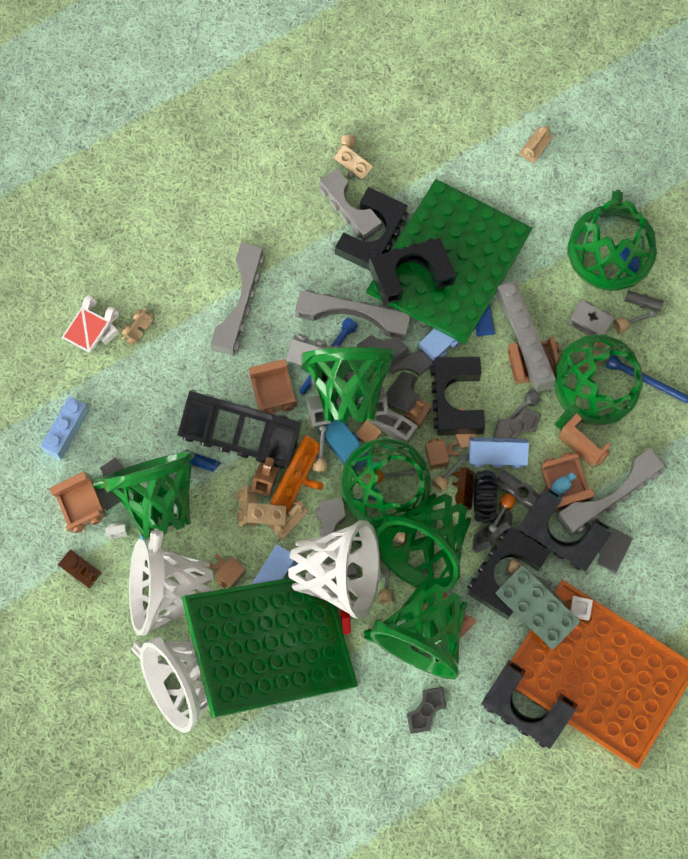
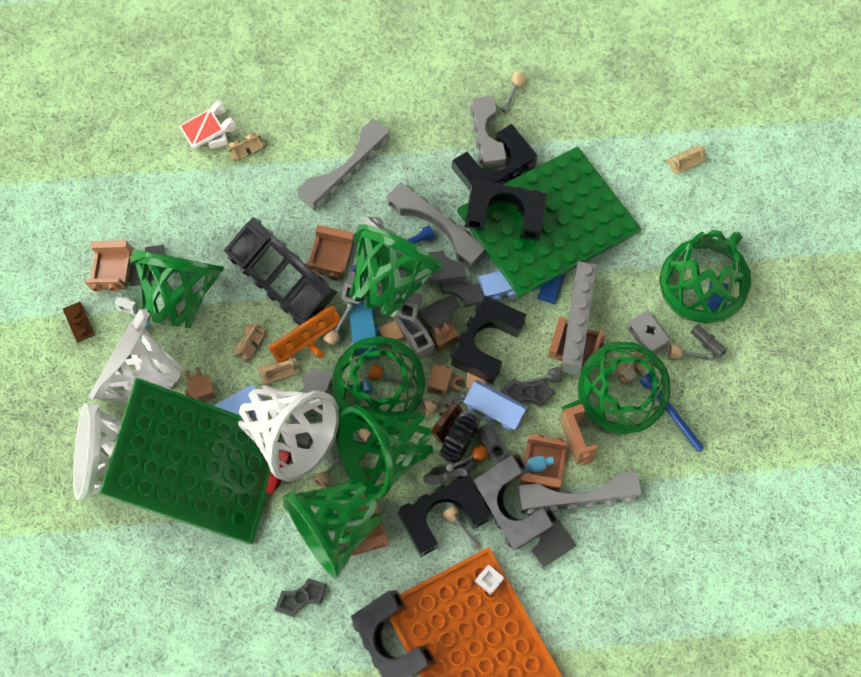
camera: 30 degrees right, 5 degrees down
(64, 428) = (135, 199): light blue brick -> none
(205, 462) = (233, 284): blue tile -> none
(265, 477) = (277, 324): medium nougat brick -> none
(265, 514) = (257, 353): tan hinge -> none
(353, 161) = (511, 97): tan hinge -> none
(538, 606) = (450, 557): sand green bracket -> none

